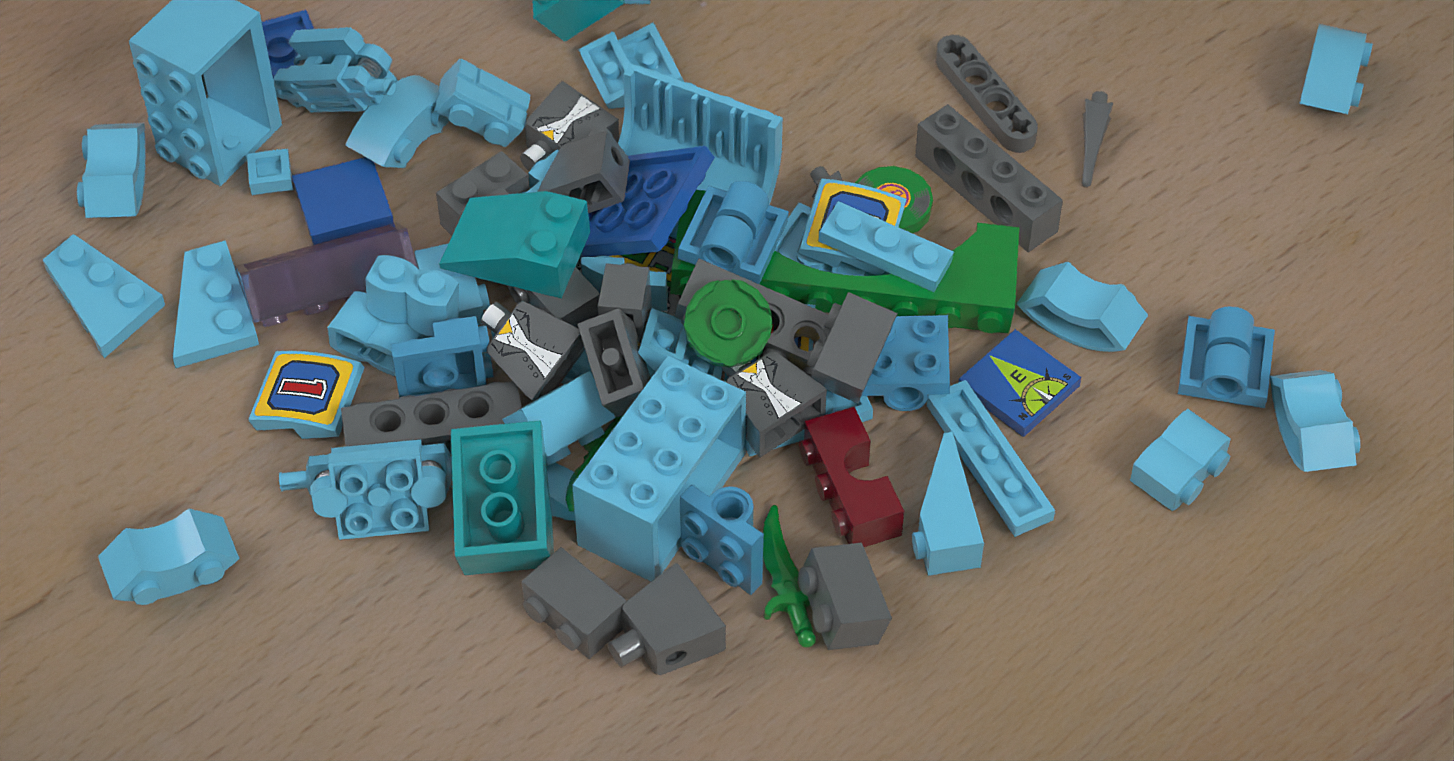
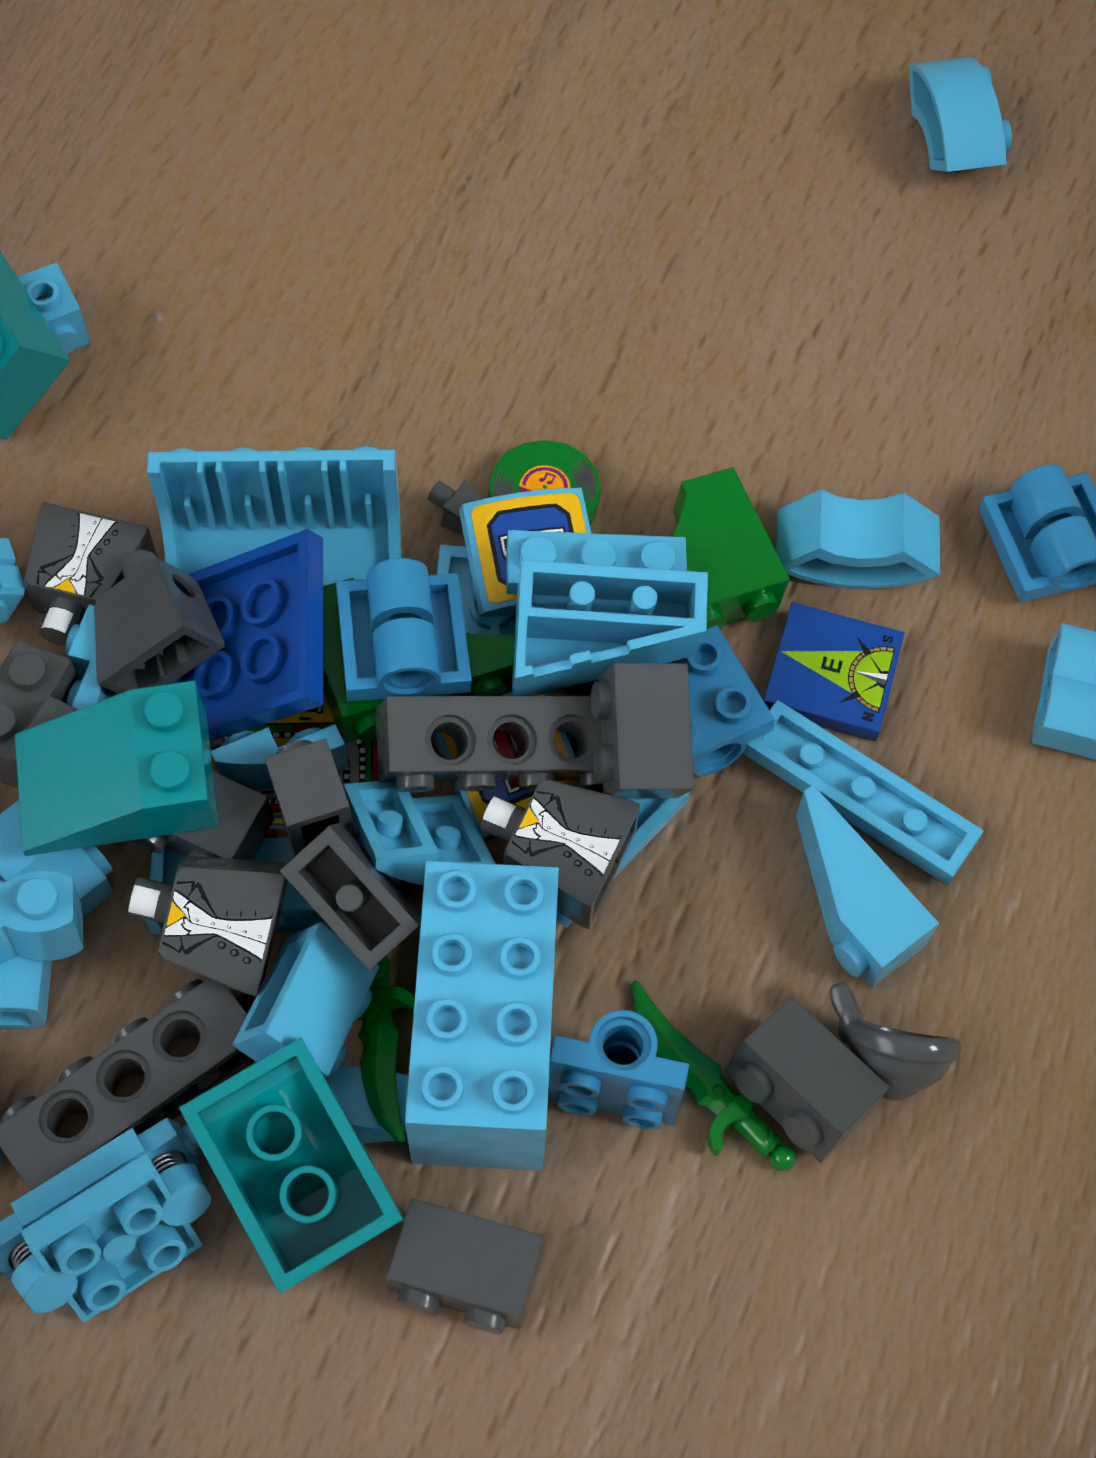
camera: 30 degrees left, 10 degrees up
(444, 361) = (115, 986): dark azure plate -> none
(610, 58) = (110, 440): medium azure slope -> none
(668, 625) = (604, 1234): dark grey torso -> none
(728, 323) = (468, 769): green tile -> none
(855, 261) = (588, 616): none -> medium azure wedge
(862, 509) = (749, 941): dark red arch -> none
(911, 609) = (898, 1057): none -> dark grey hat
(980, 95) = (581, 293): dark grey beam -> none
(988, 177) = (646, 411): dark grey brick -> none
(1095, 123) = (726, 289): dark grey piece -> none

